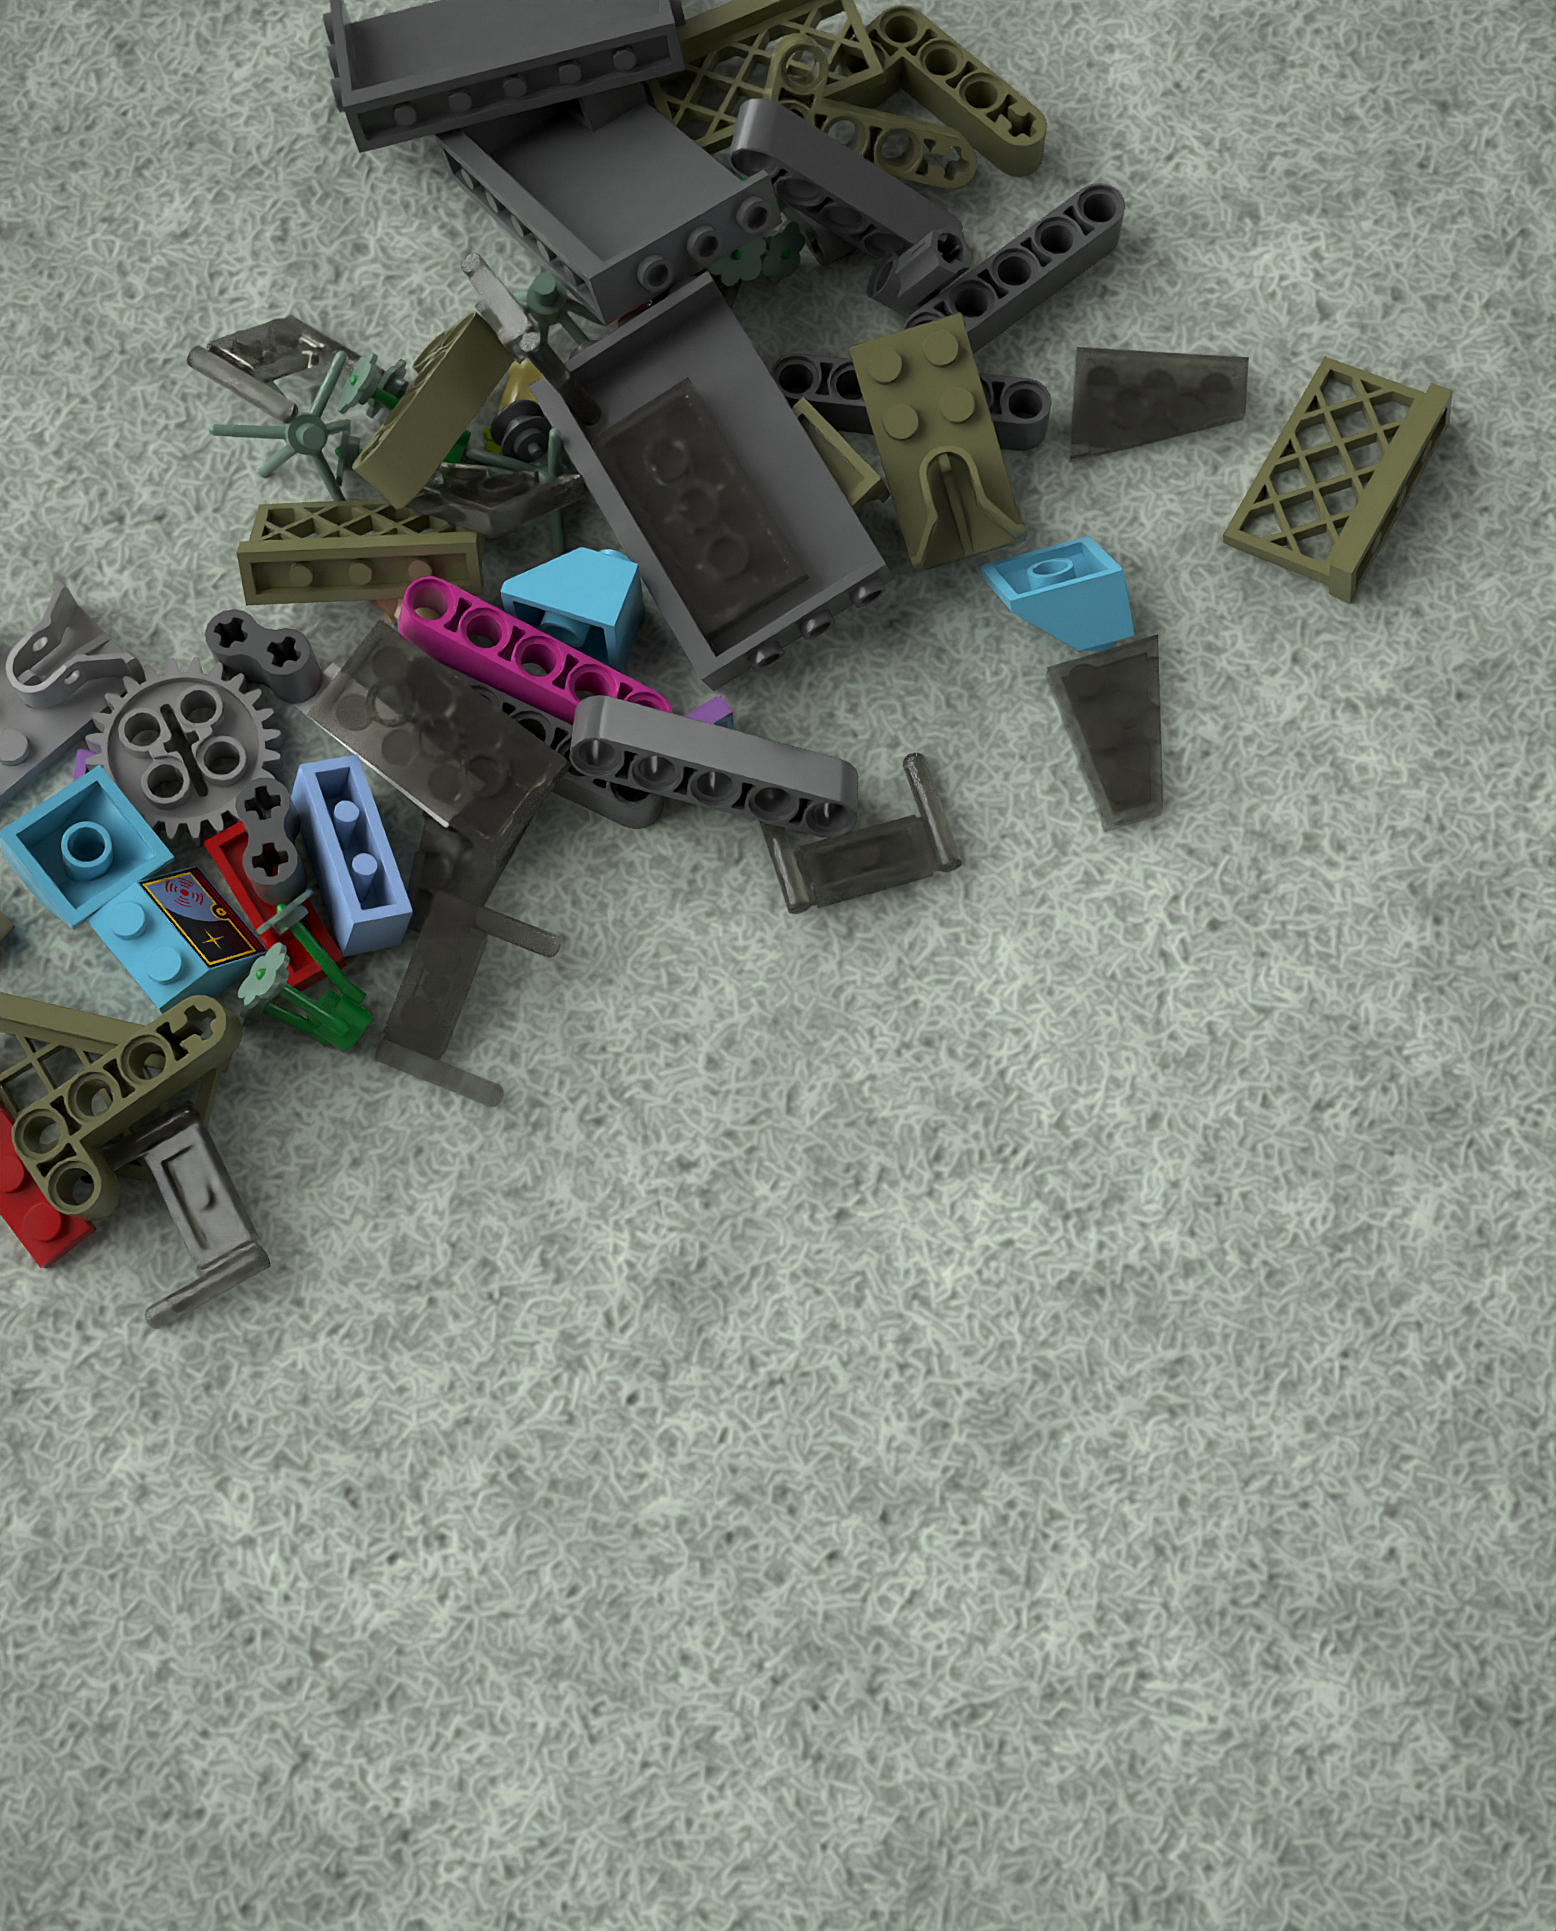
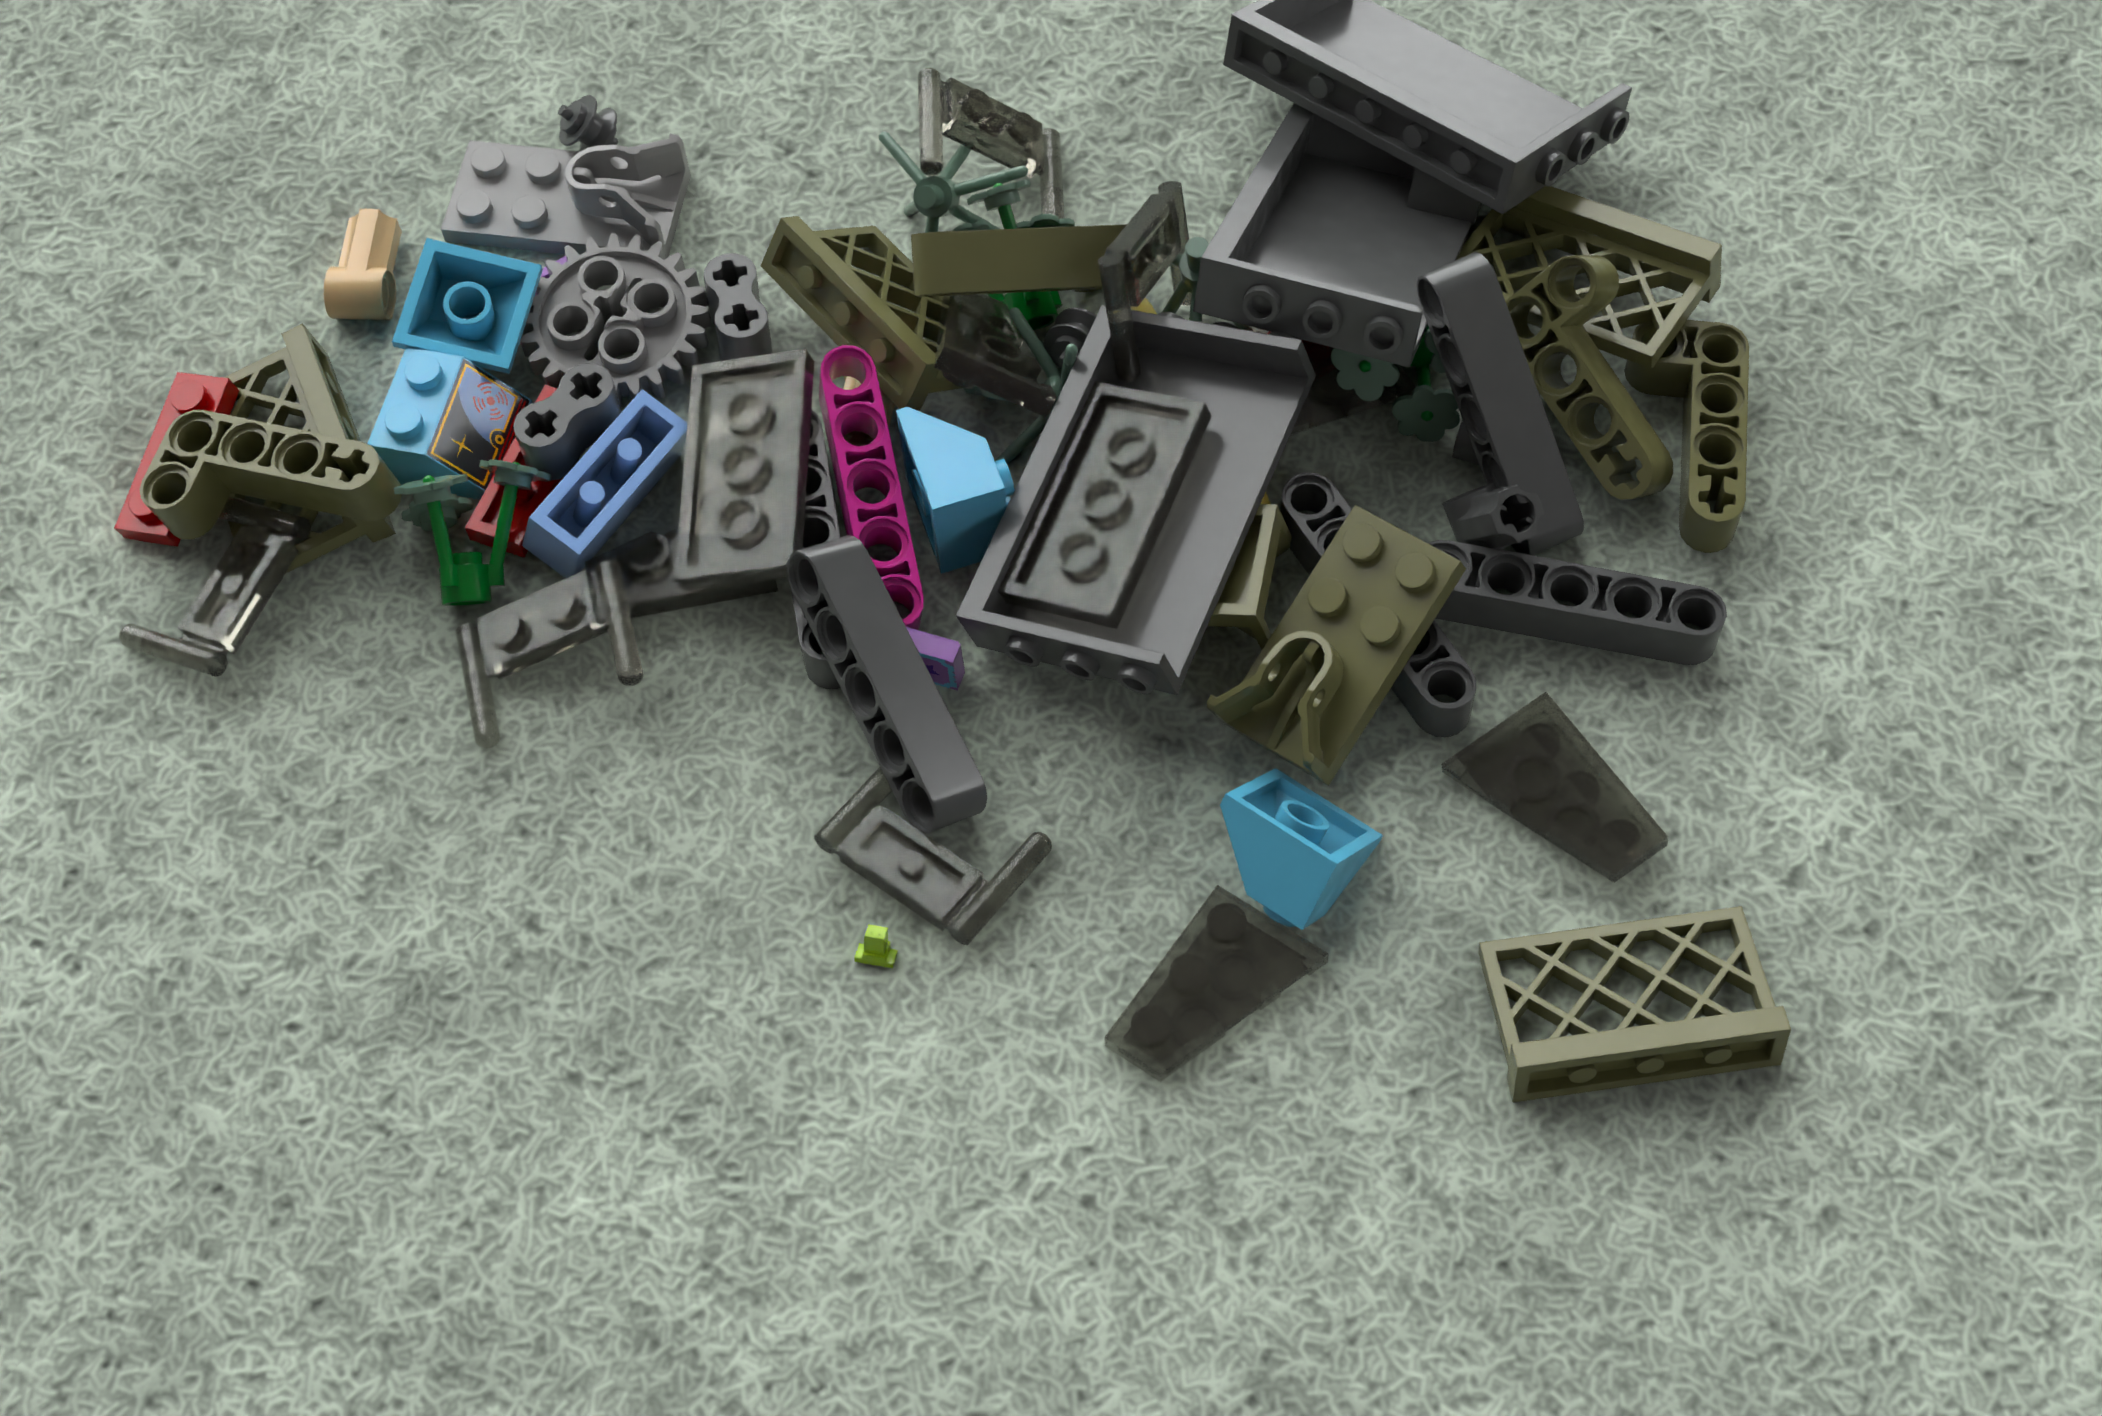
camera: 55 degrees right, 10 degrees down
(909, 931) = (876, 948): none -> lime piece

